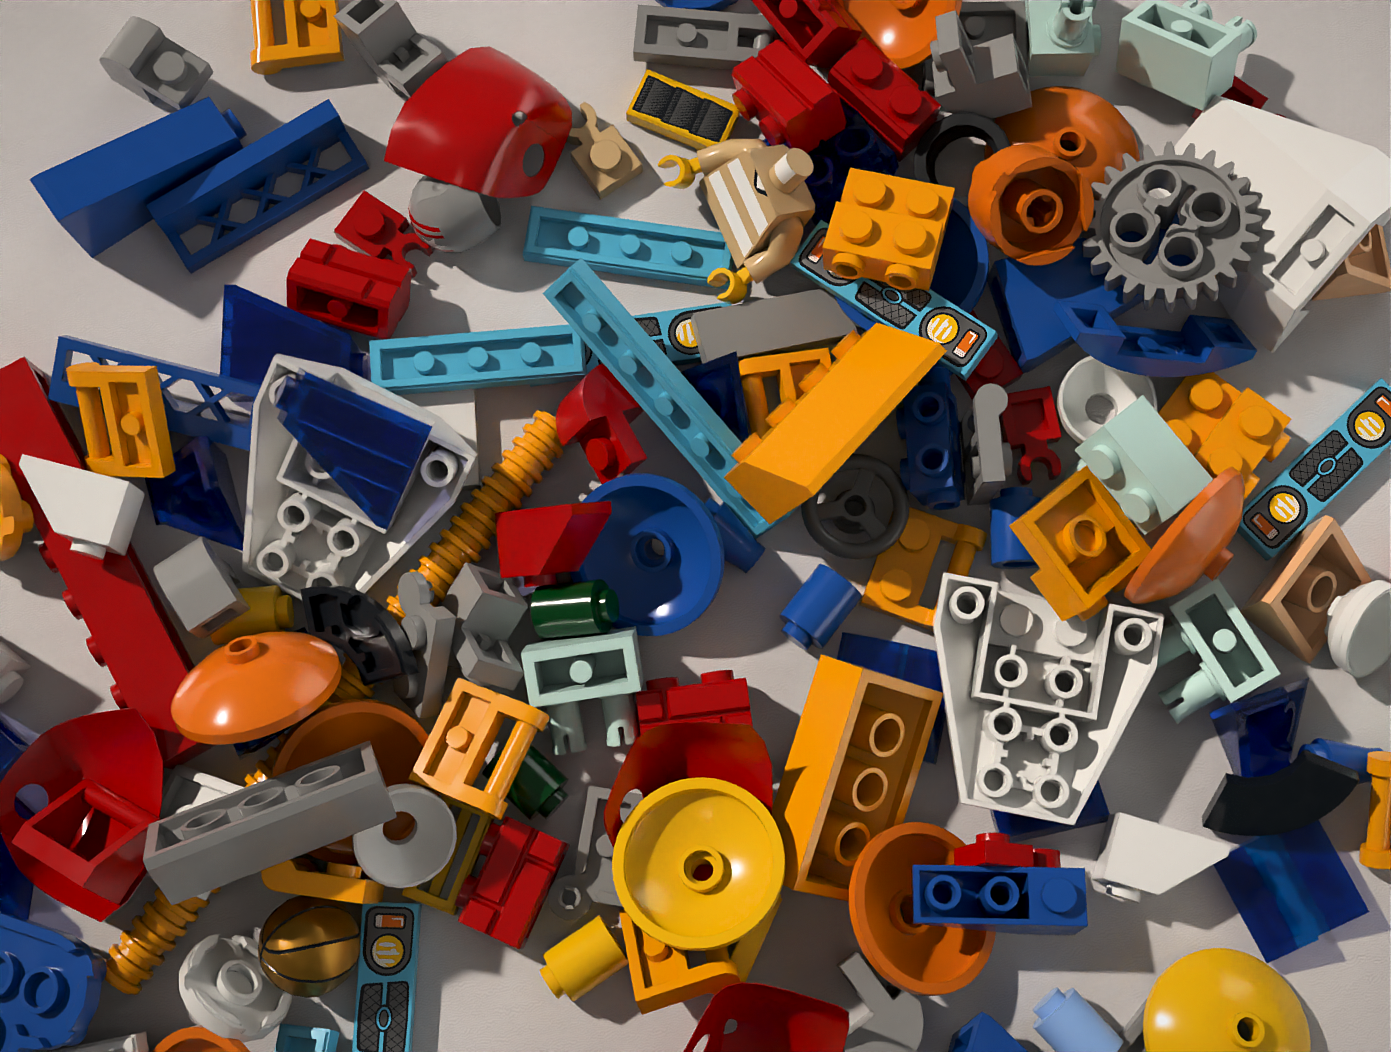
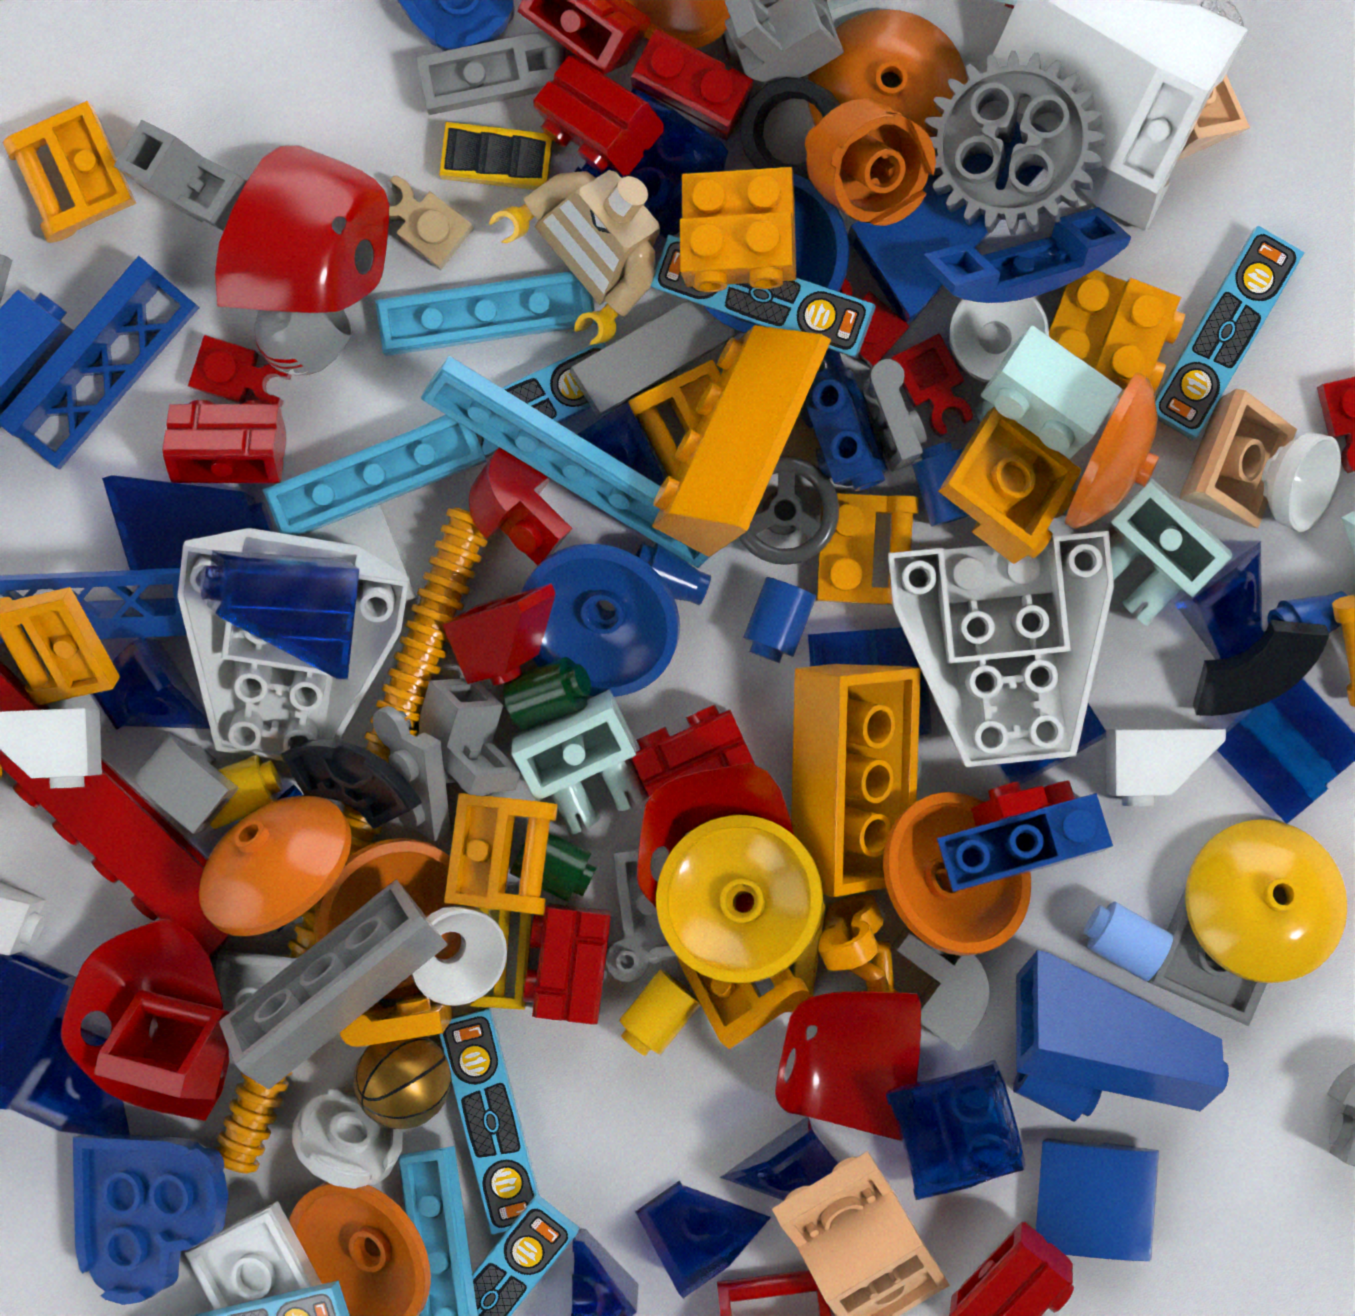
camera: 20 degrees left, 10 degrees up
(798, 942) = (851, 942): none -> light orange piece

